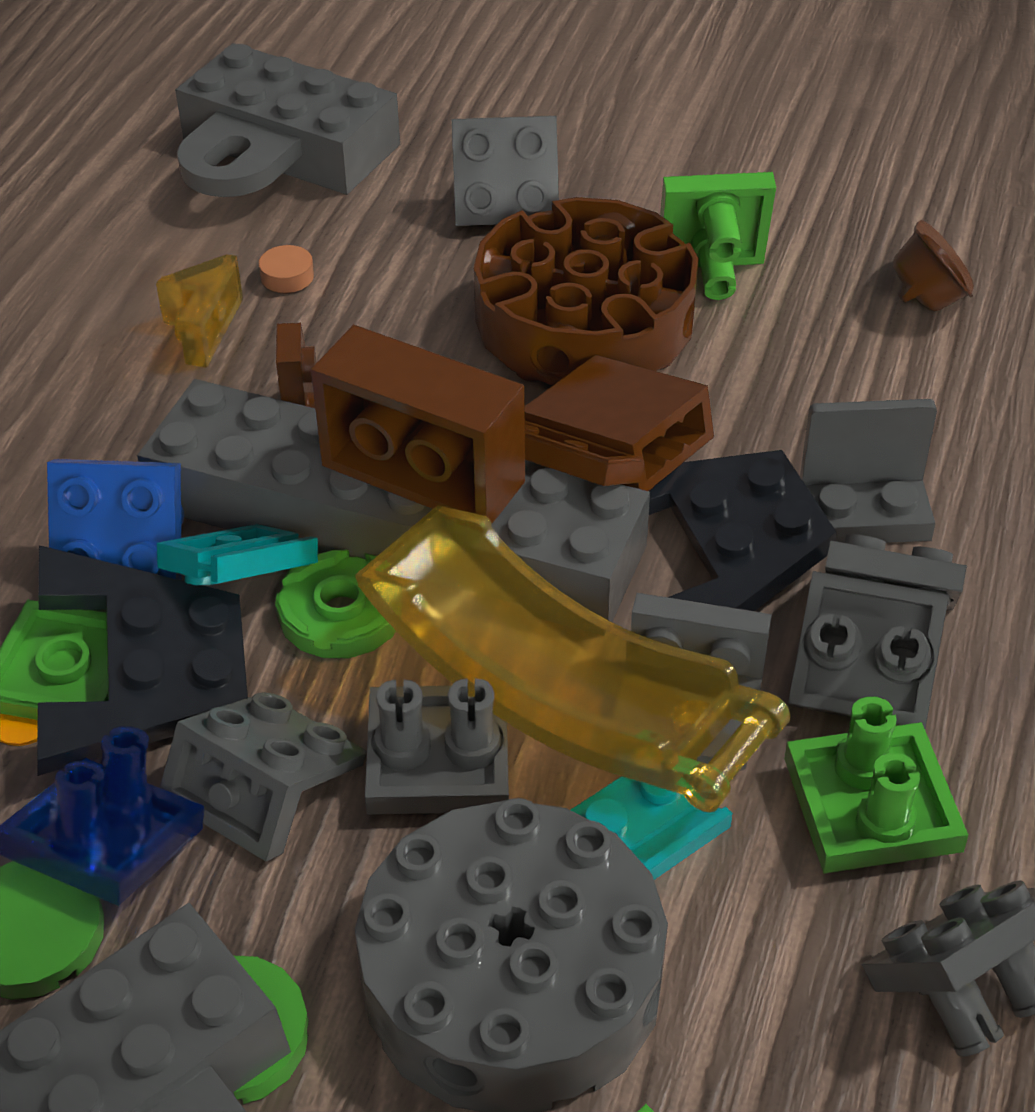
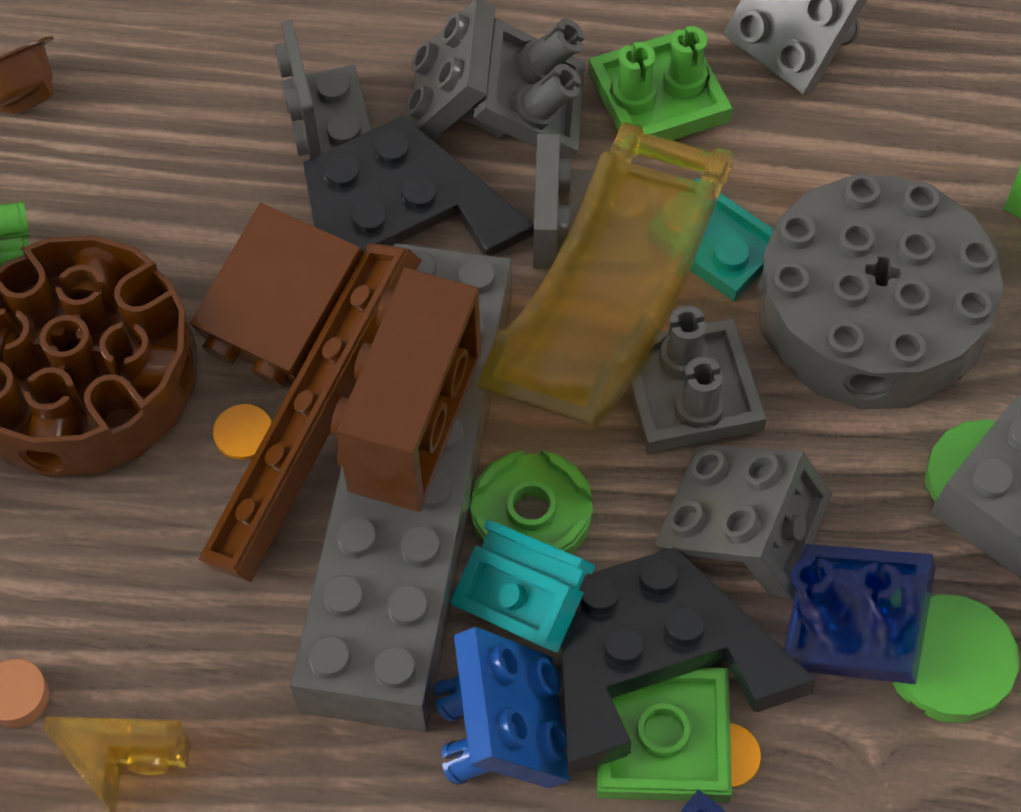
camera: 100 degrees left, 15 degrees up
(294, 365) = (258, 596): reddish brown wing -> none

